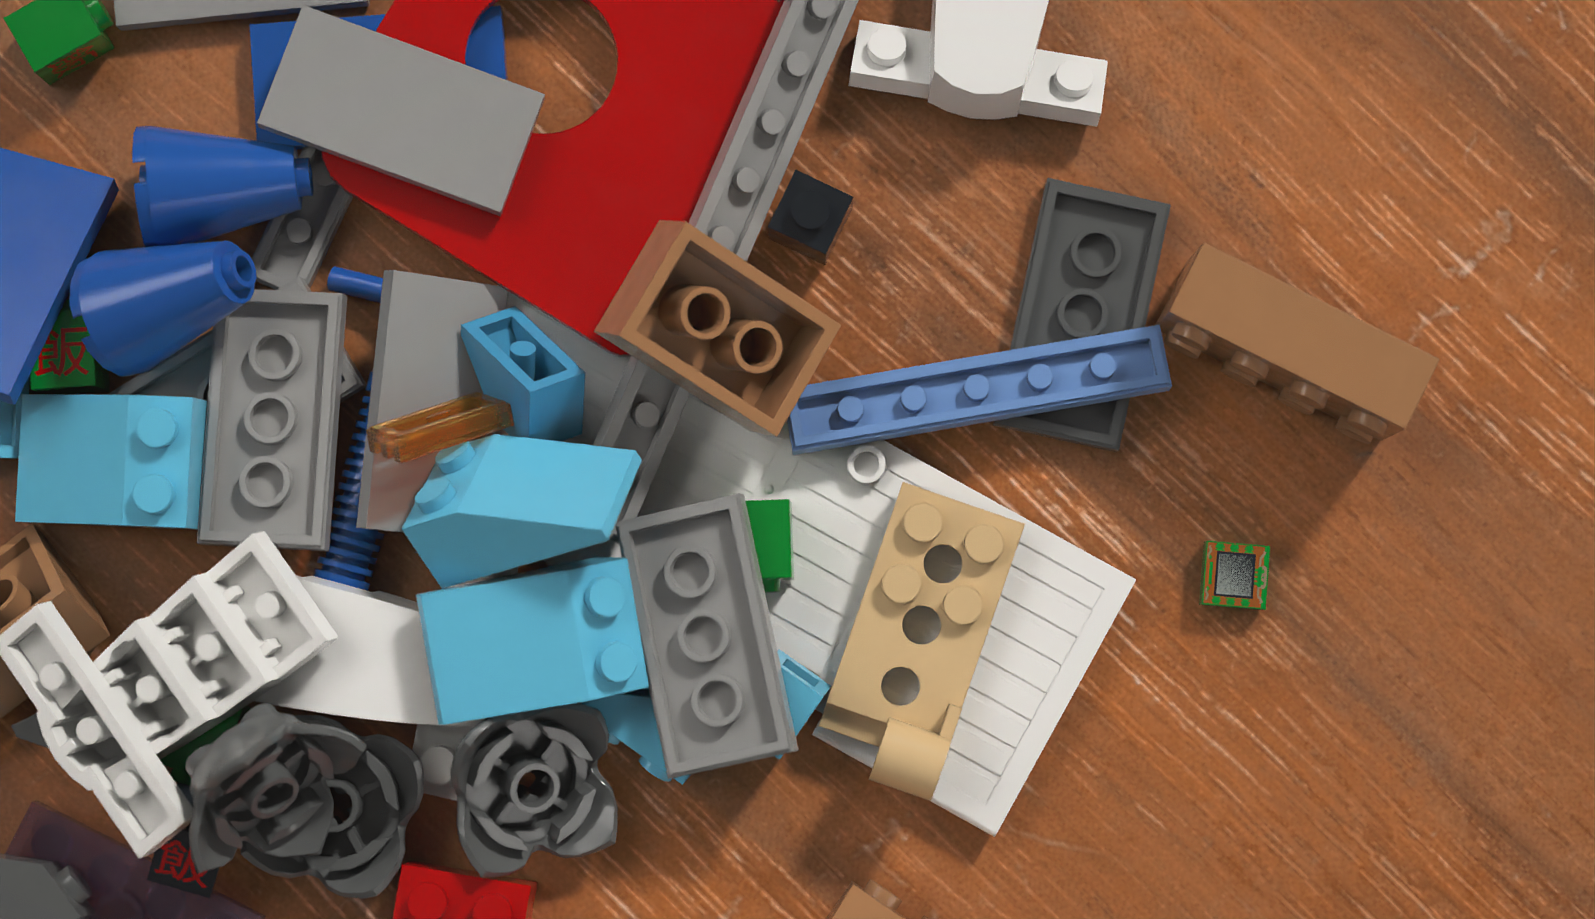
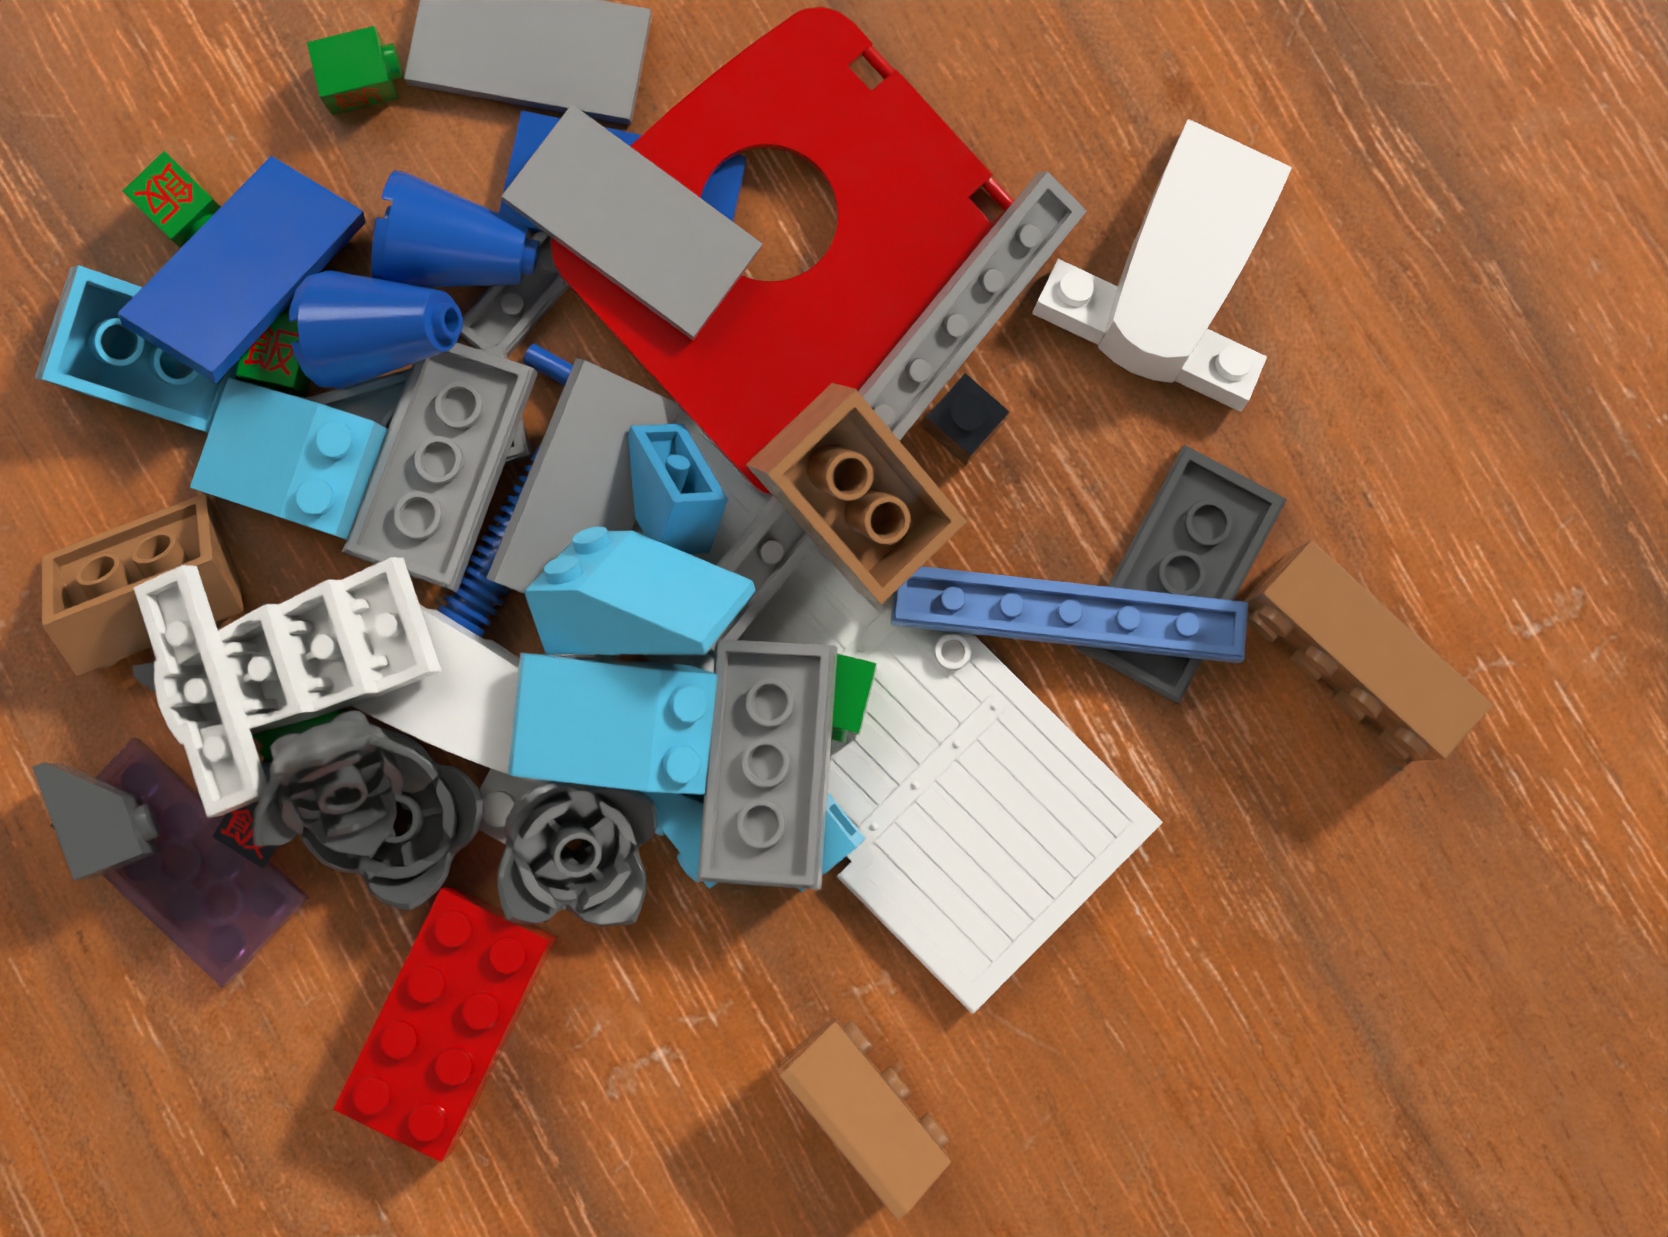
camera: 10 degrees right, 0 degrees up
(439, 427) = (585, 510): clear orange tile -> none
(918, 735) = (931, 904): tan hinge -> none
(1234, 575) = (1250, 843): tile -> none

